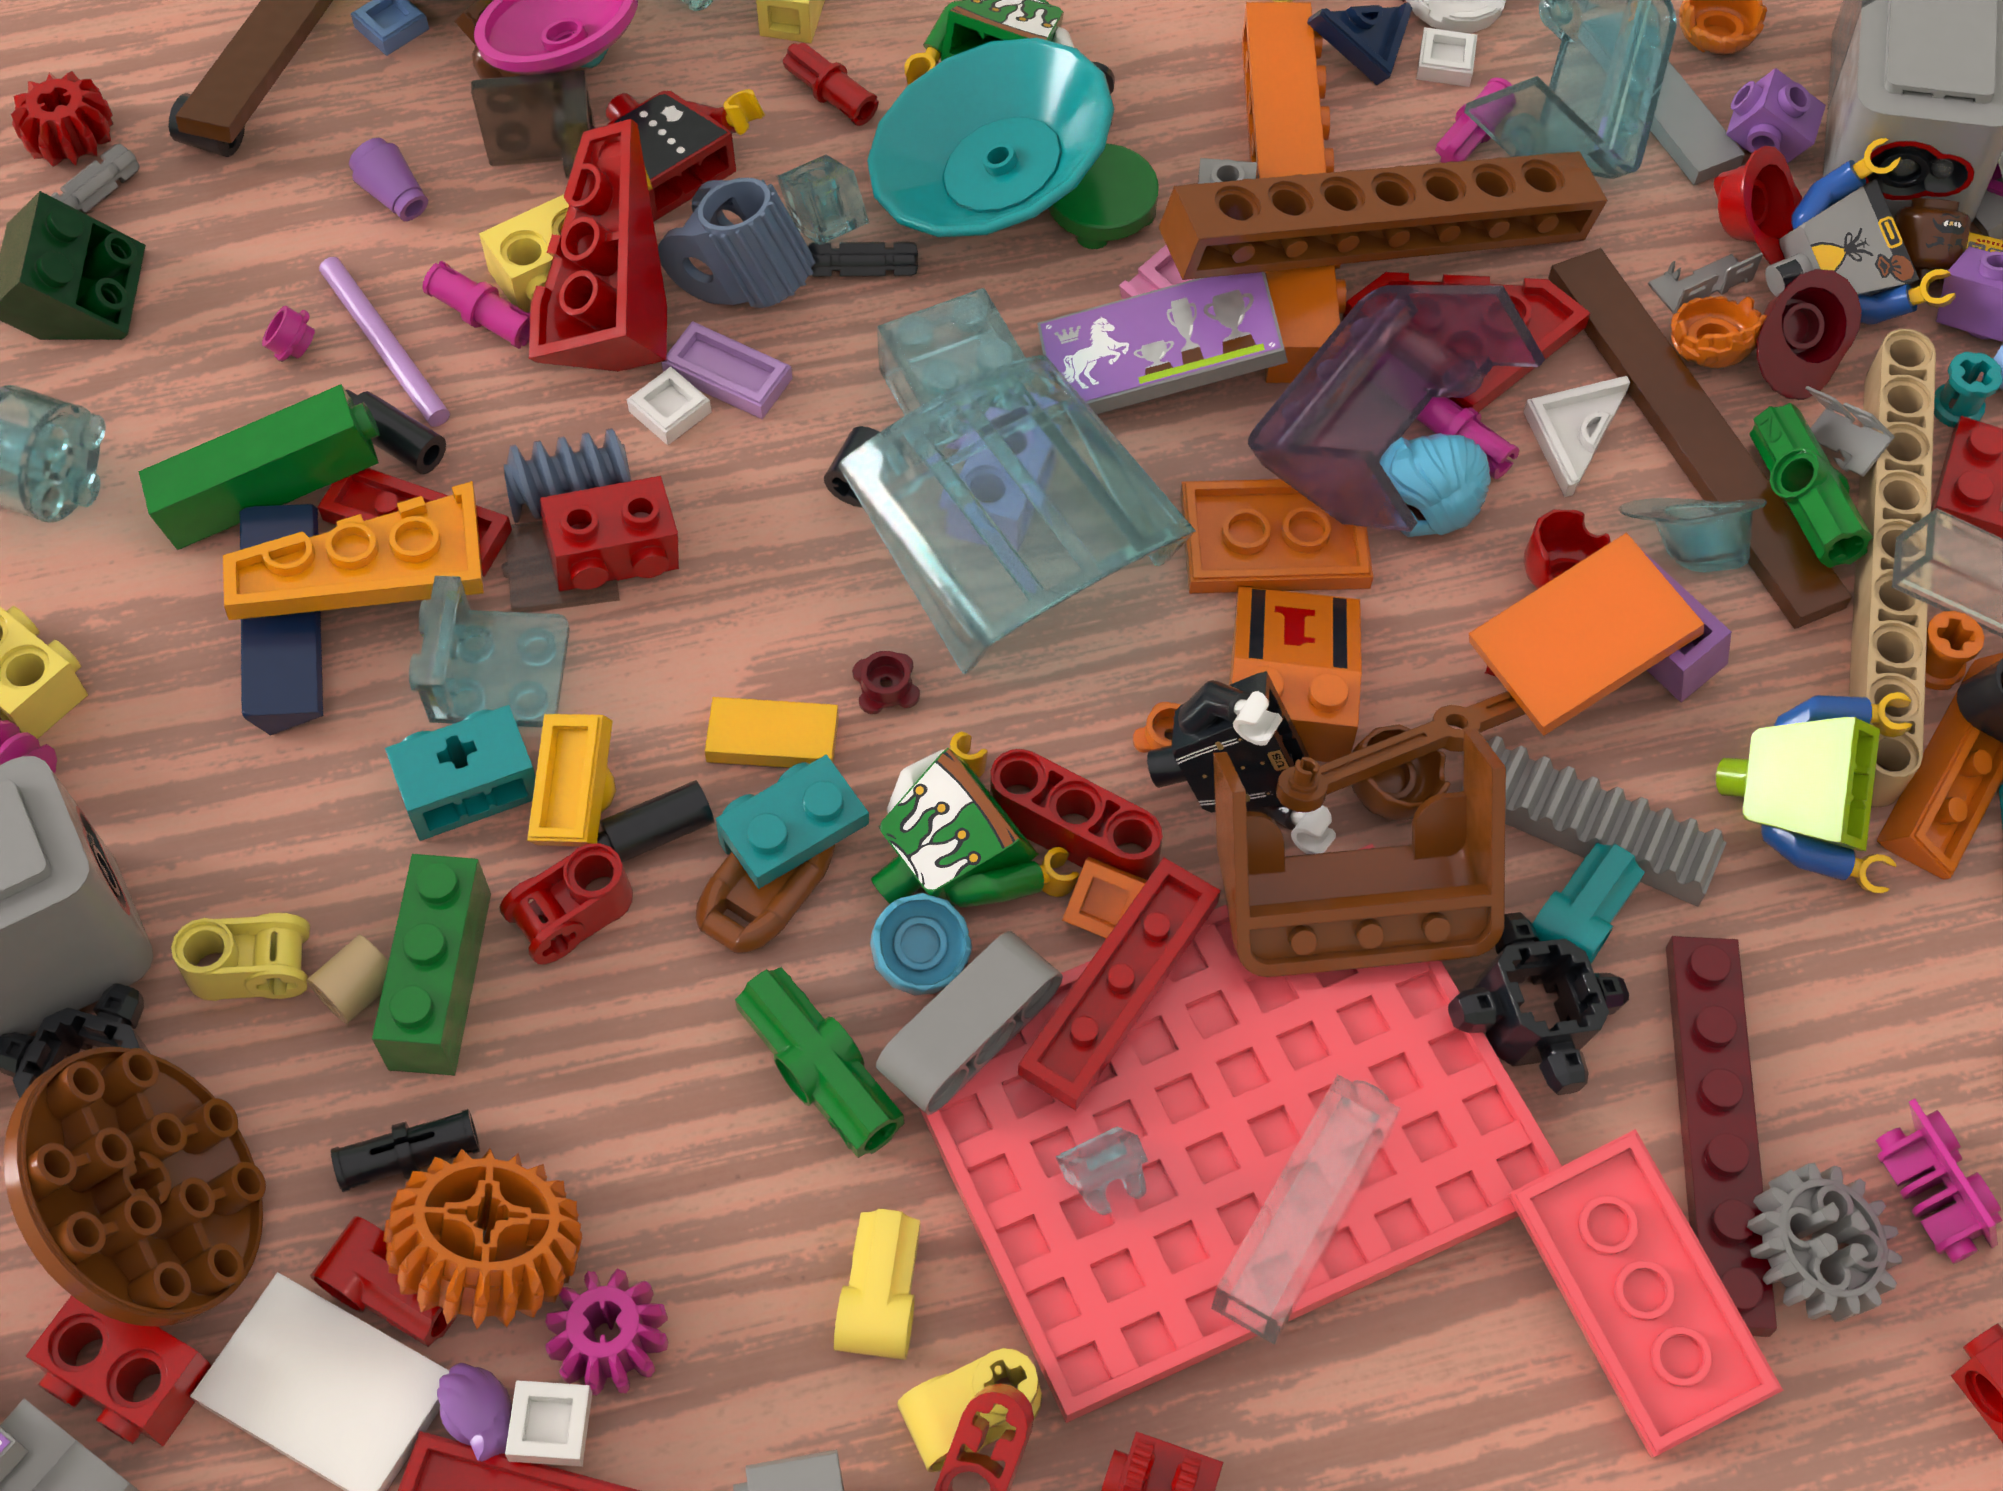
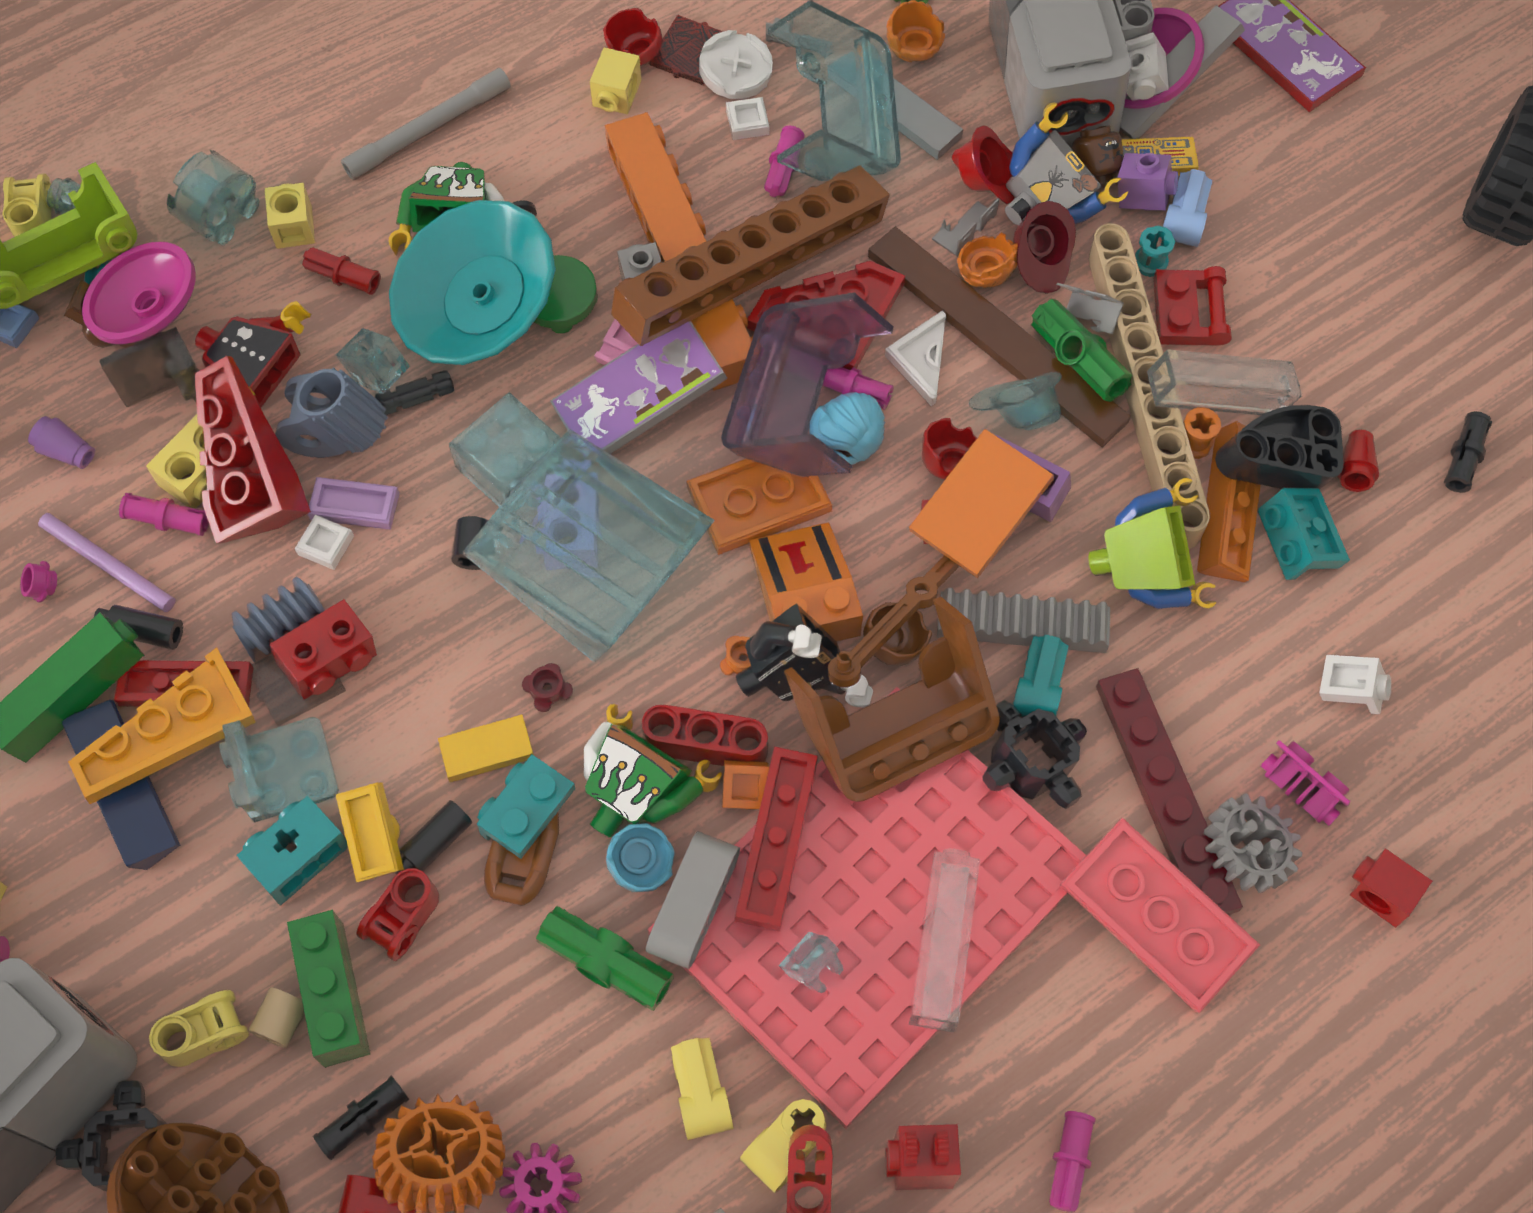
camera: 20 degrees left, 5 degrees up
(1365, 36) = (691, 122): dark blue tile -> none
(1775, 115) = (975, 99): medium lavender brick -> none

